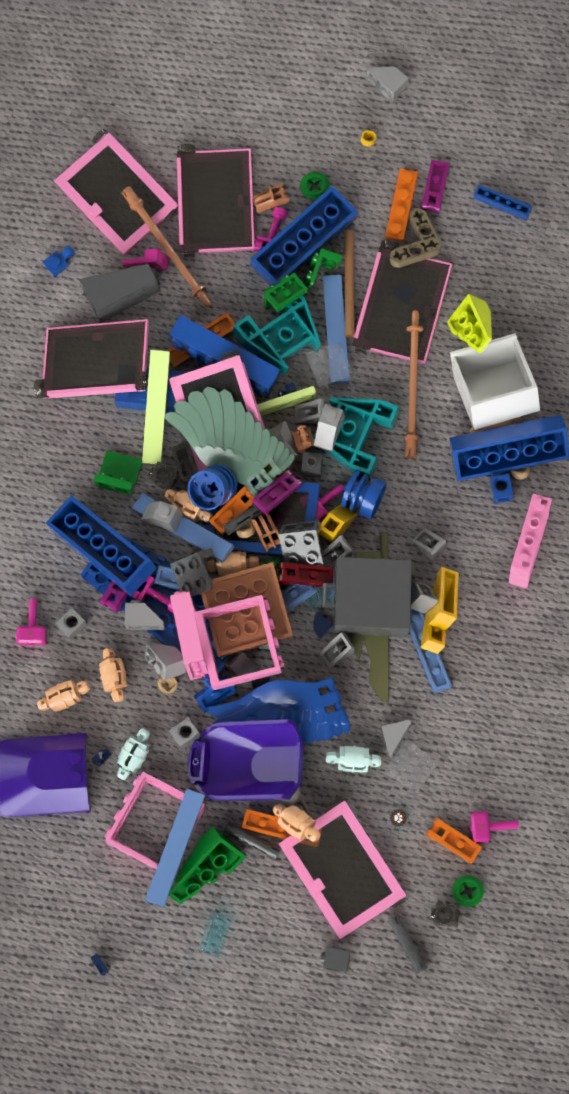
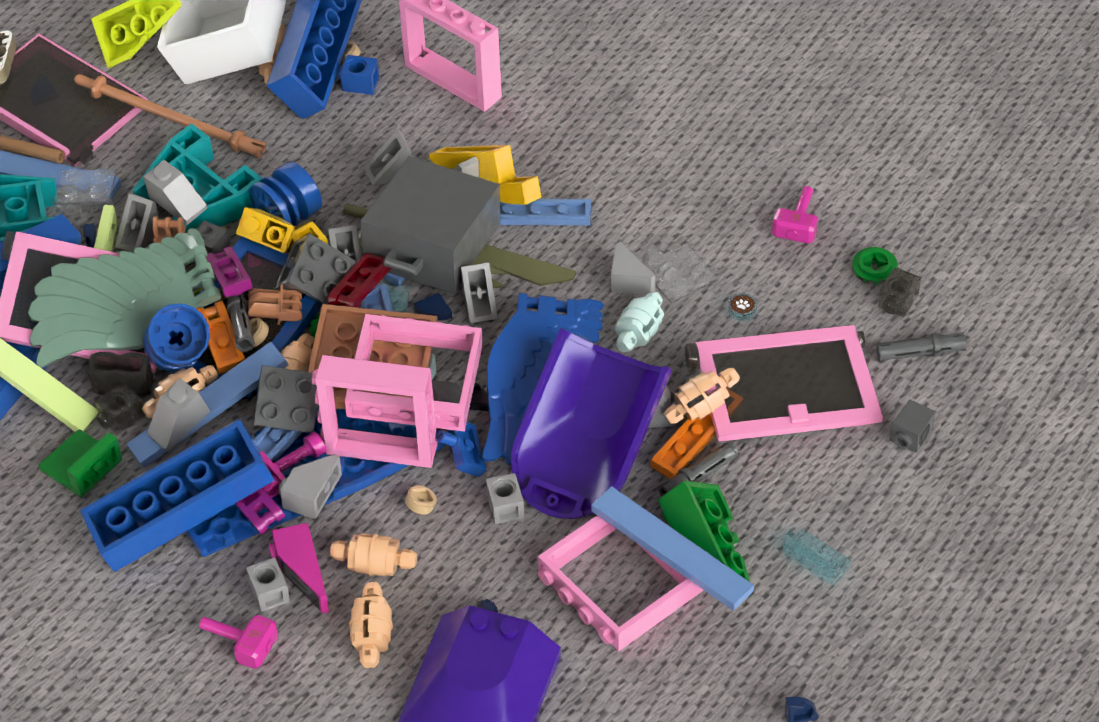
camera: 75 degrees left, 25 degrees down
(95, 633) = (299, 562): none -> dark pink slope
(133, 753) = (504, 565): light aqua piece -> none
(165, 659) = (385, 484): light grey slope -> none
(326, 497) = (265, 229): none -> yellow slope
(454, 841) = (800, 258): orange plate -> none

